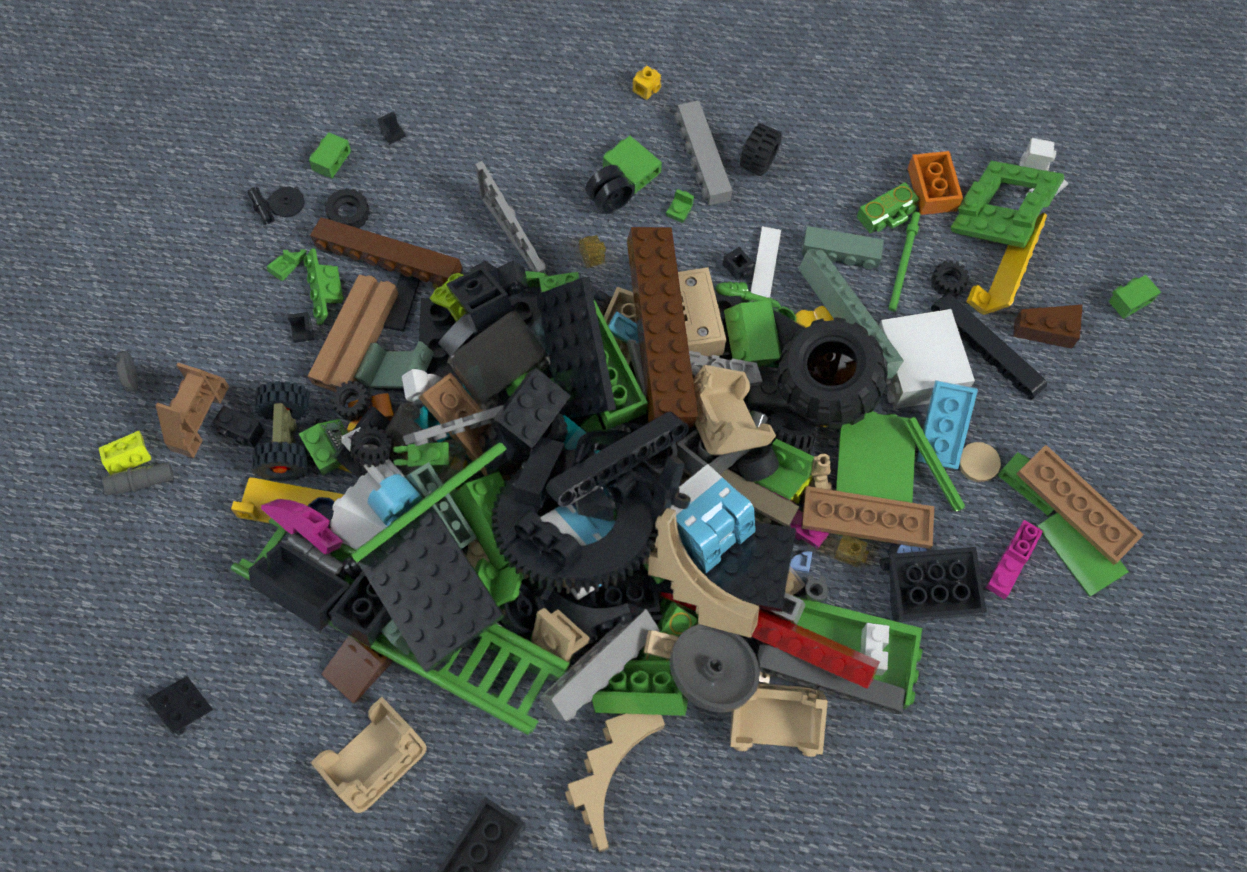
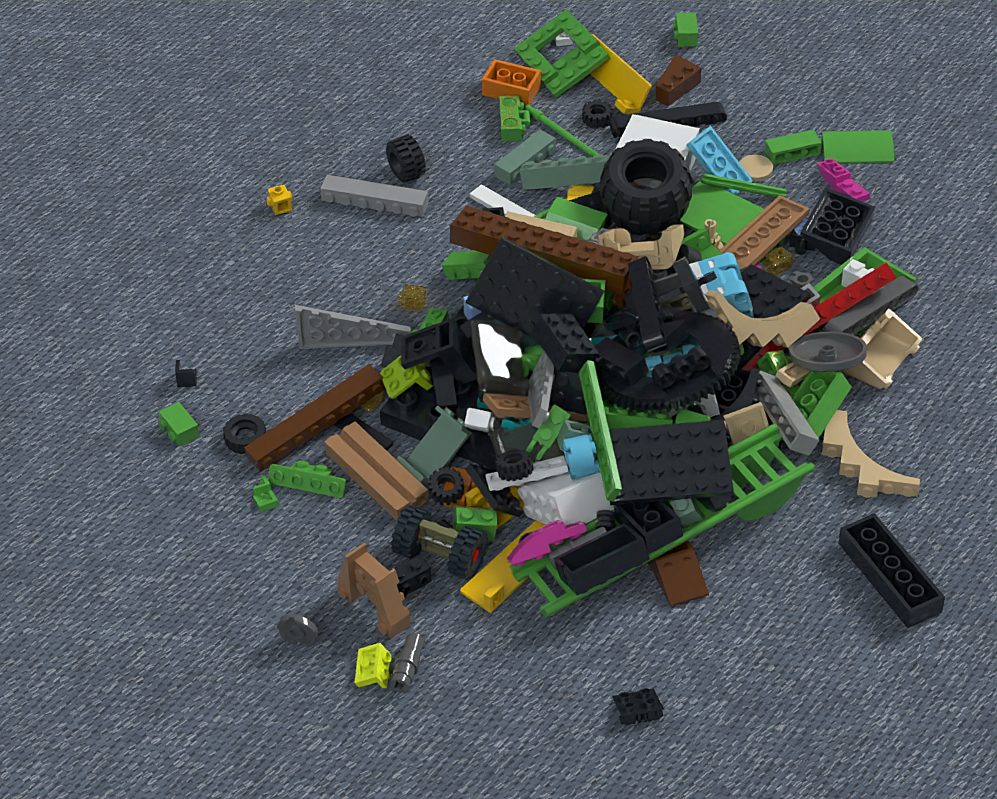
camera: 55 degrees left, 20 degrees down
(260, 205) = (191, 490): black pin -> none
(286, 202) = (199, 474): black piece -> none
(301, 327) = (341, 503): black panel -> none
(372, 758) = (759, 592): tan windscreen -> none
(609, 189) = (368, 258): black wheel -> none
(634, 161) = (349, 241): bright green brick -> none
(680, 206) = (411, 231): bright green bracket -> none
(1038, 154) = (535, 17): white brick -> none
(1080, 504) = (827, 126): medium nougat plate -> none

